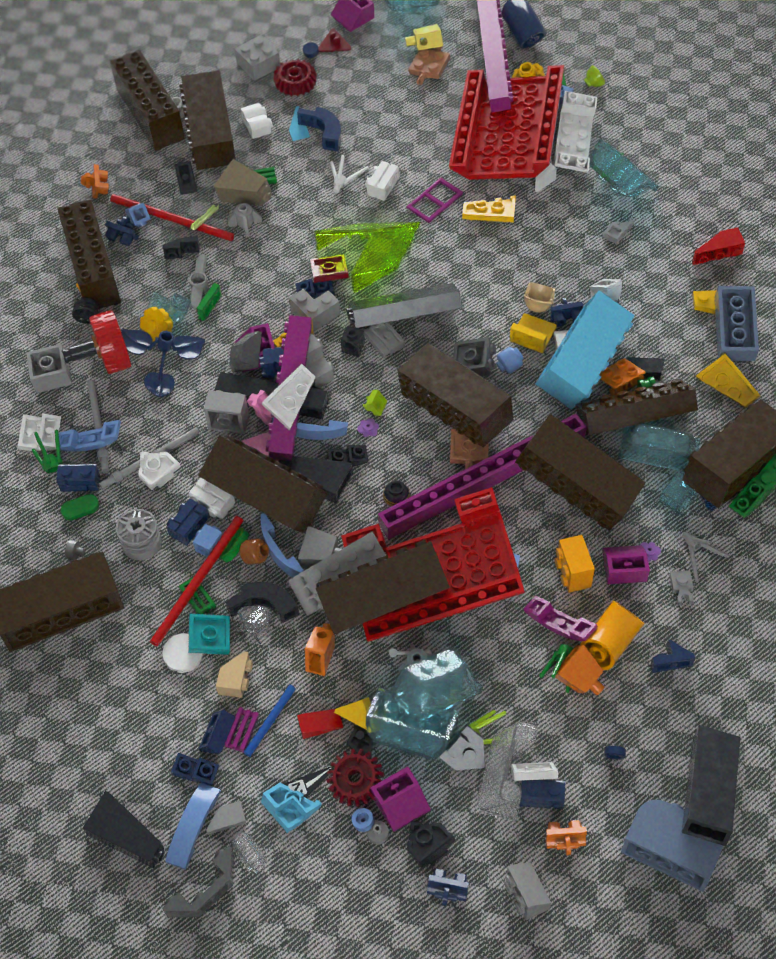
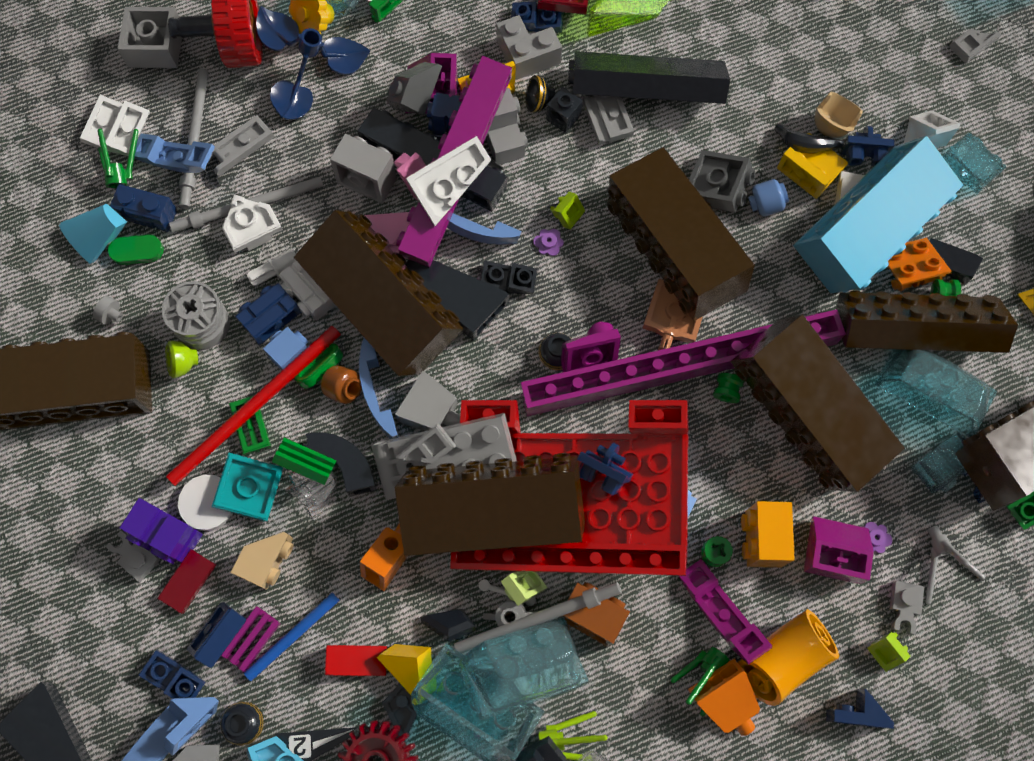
camera: 10 degrees right, 15 degrees up
(47, 501) = (93, 231): none -> medium azure slope
(134, 420) = (240, 144): none -> light grey hinge
(134, 566) = (179, 358): none -> lime brick
(143, 702) = (134, 559): none -> light grey plate
(159, 674) = (154, 528): none -> dark purple brick
(181, 493) = (271, 268): none -> white axle
(185, 706) = (187, 581): none -> dark red tile
(215, 785) = (193, 715): none -> medium blue slope
(245, 601) = (304, 461): none -> green tile
(252, 785) = (241, 723): none -> black piece
(329, 565) = (428, 447): none -> light grey tile
(331, 336) = (538, 94): none -> black piece
(375, 680) = (449, 624): none -> black piece
(419, 639) = (523, 586): none -> yellowish green plate
(422, 477) = (596, 347): none -> magenta slope
(460, 549) = (615, 475): none -> dark blue hips
(466, 624) = (589, 599): none -> light grey bar
(474, 643) = (599, 622): none -> dark orange brick
(520, 484) = (728, 388): none -> green wheel
(524, 318) = (806, 143): none -> black piece
(547, 590) = (713, 556): none -> green wheel
(641, 303) = (974, 163): none -> clear light blue brick
(678, 615) = (889, 651): none -> lime tile

